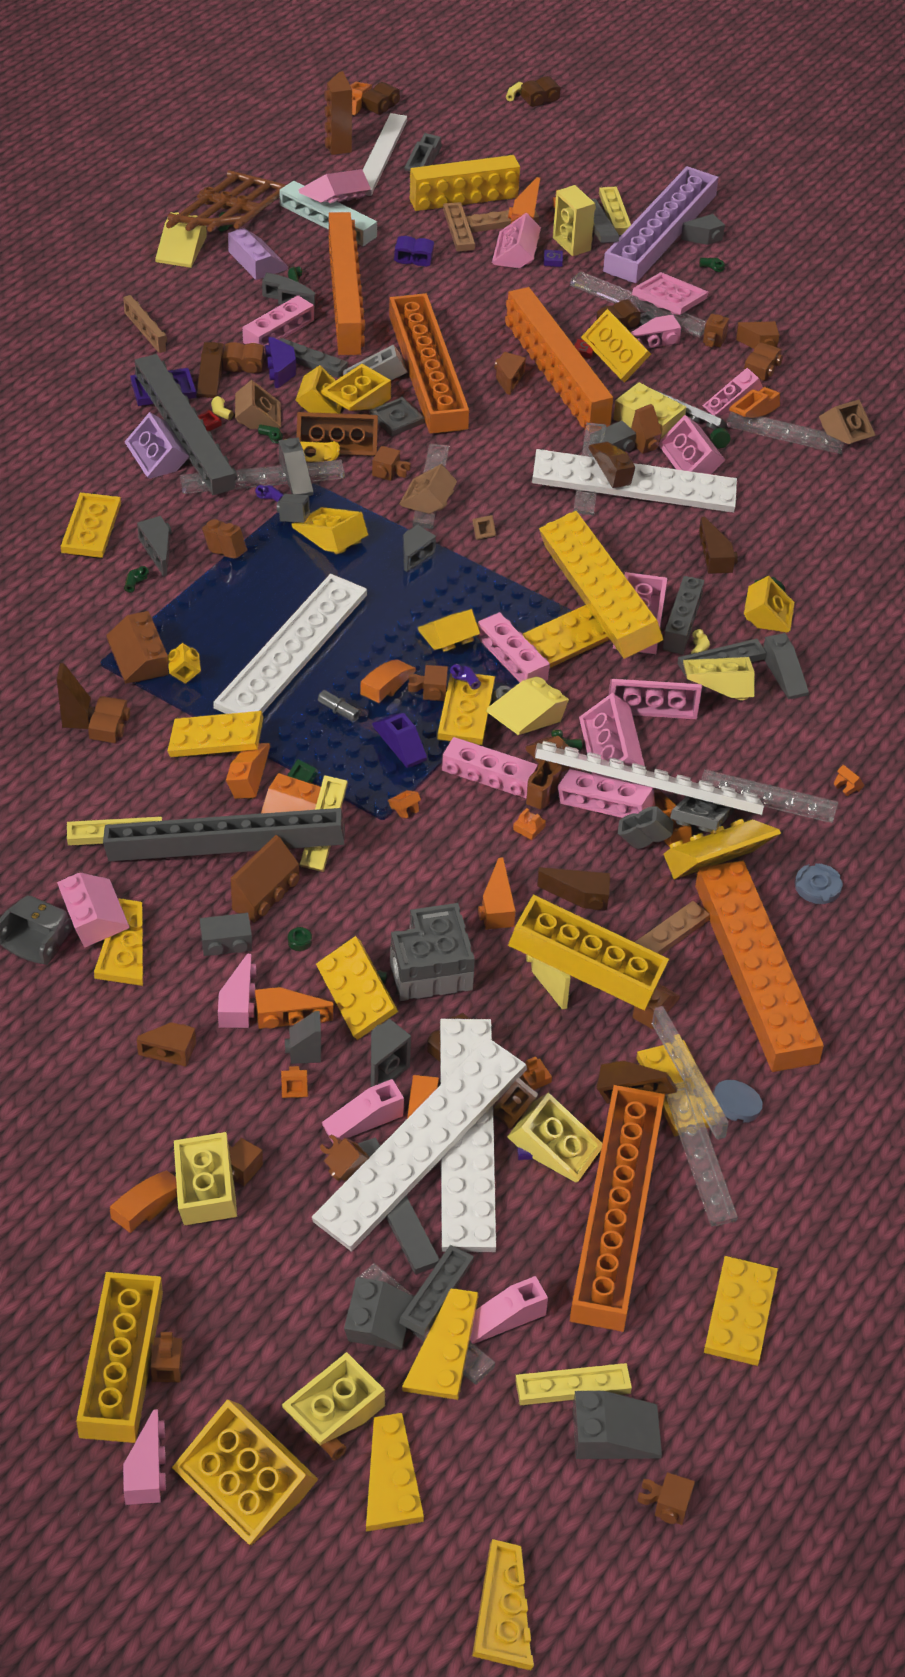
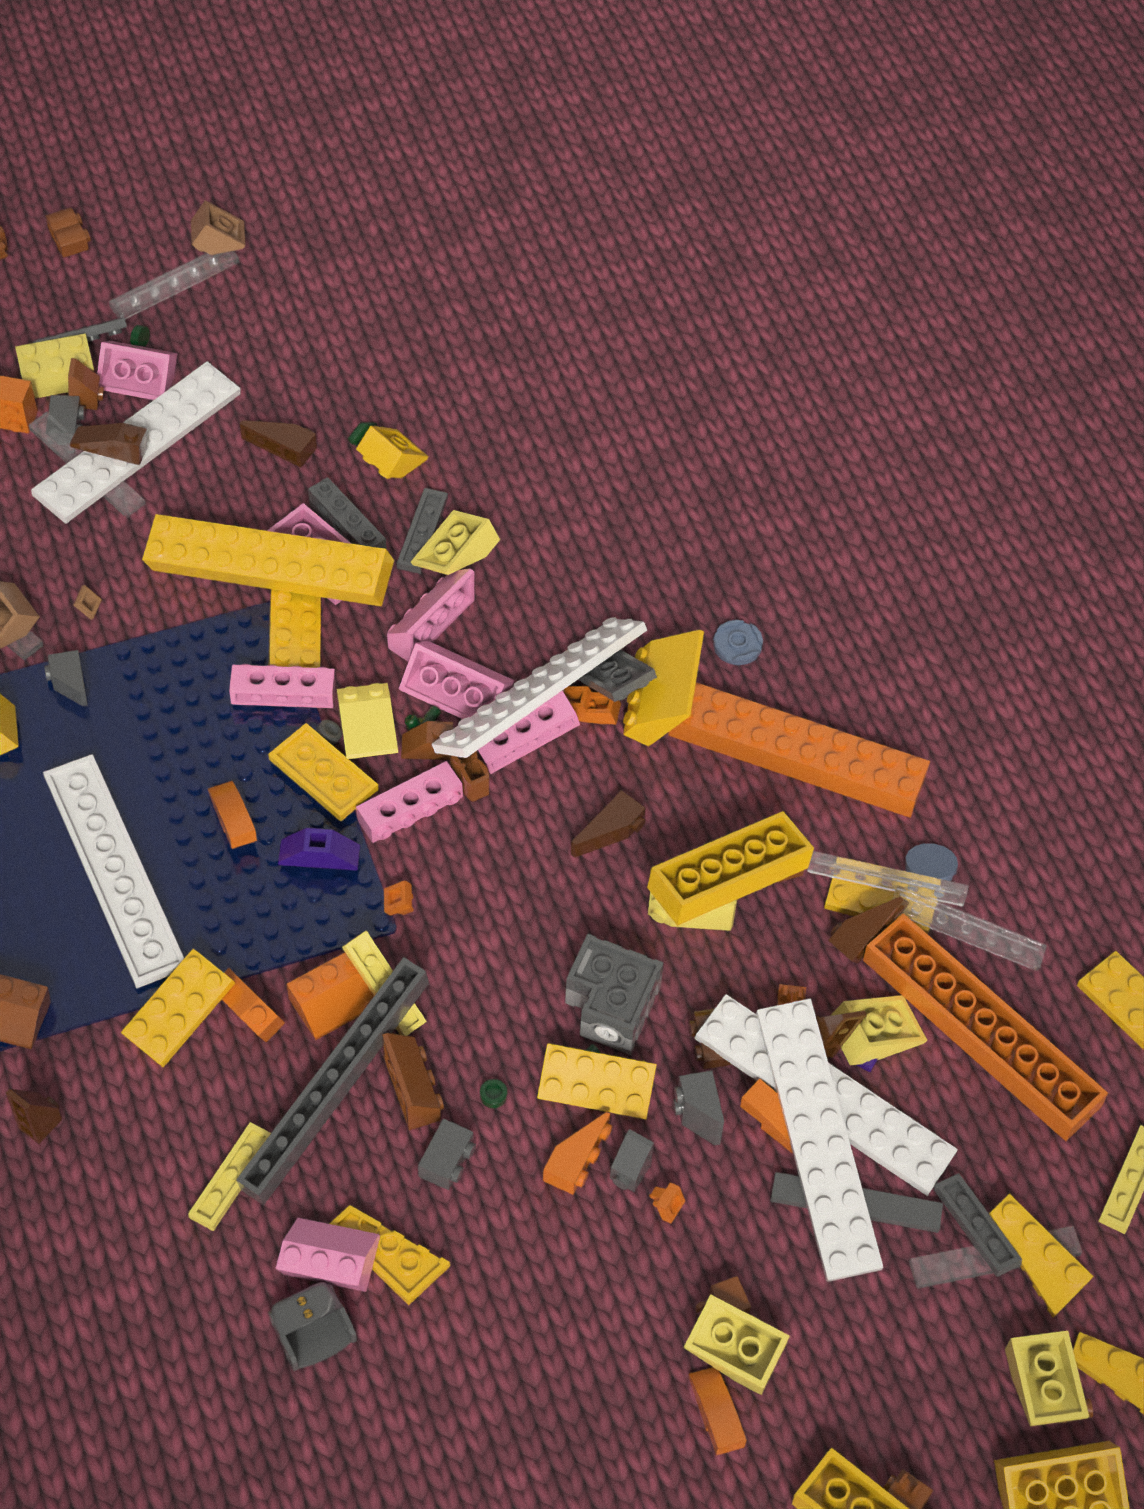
camera: 55 degrees left, 10 degrees up
(108, 719) = (73, 1093): dark orange brick -> none
(168, 1043) = (547, 1282): dark orange slope -> none
(184, 663) = (60, 977): yellow brick -> none
(235, 996) = (535, 1194): bright pink slope -> none
(303, 772) = (290, 964): dark green tile -> none
(339, 705) = (231, 877): dark grey axle -> none
(344, 1157) = (790, 1212): dark orange brick -> none
(368, 1110) = (746, 1164): bright pink slope -> none
(376, 1314) = (973, 1290): dark grey slope -> none
(433, 682) = (269, 778): dark orange brick -> none
(450, 630) = (210, 720): yellow slope -> none
(465, 674) = (289, 744): dark purple arm -> none
(497, 902) = (577, 900): orange slope -> none
(509, 1309) = (1035, 1176): bright pink slope -> none
(529, 824) = (500, 816): orange tile -> none
(645, 827) = (593, 723): dark grey brick -> none
(674, 928) = (709, 793): medium nougat plate -> none
(700, 641) = (391, 534): light yellow arm -> none
(732, 392) = (93, 285): bright pink slope -> none
(754, 332) = (29, 210): dark orange slope -> none
(757, 403) = (124, 277): orange slope -> none
(777, 797) = (617, 605): clear tile -> none
(785, 665) = (474, 490): dark grey slope -> none
(846, 776) = (642, 536): orange tile -> none

